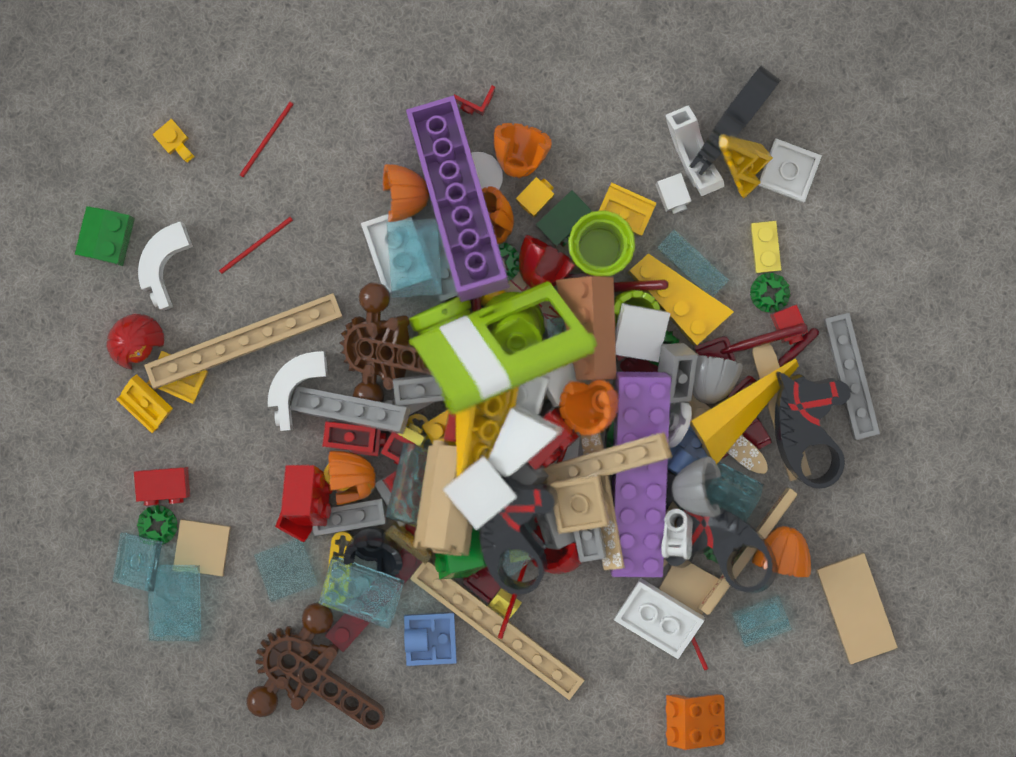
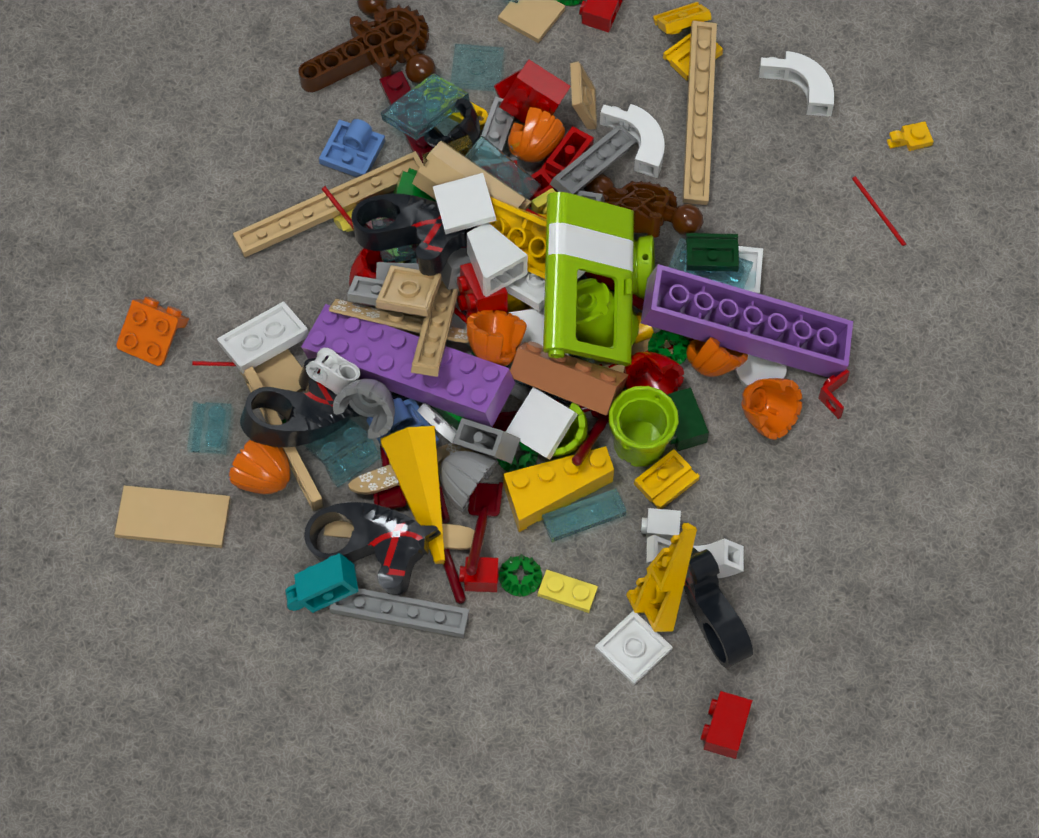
camera: 115 degrees right, 25 degrees down
(104, 235) = (846, 50): green slope -> none
(133, 339) = (746, 34): red hair -> none
(255, 245) = (783, 162): red axle -> none
(280, 453) = (583, 95): none -> tan tile
(398, 260) = (712, 252): none -> dark green plate
(407, 191) = (777, 282): orange hair -> none
(535, 196) = (717, 404): yellow brick -> none
(824, 63) = (727, 724): none -> red brick
(865, 448) = (322, 584): none -> teal brick

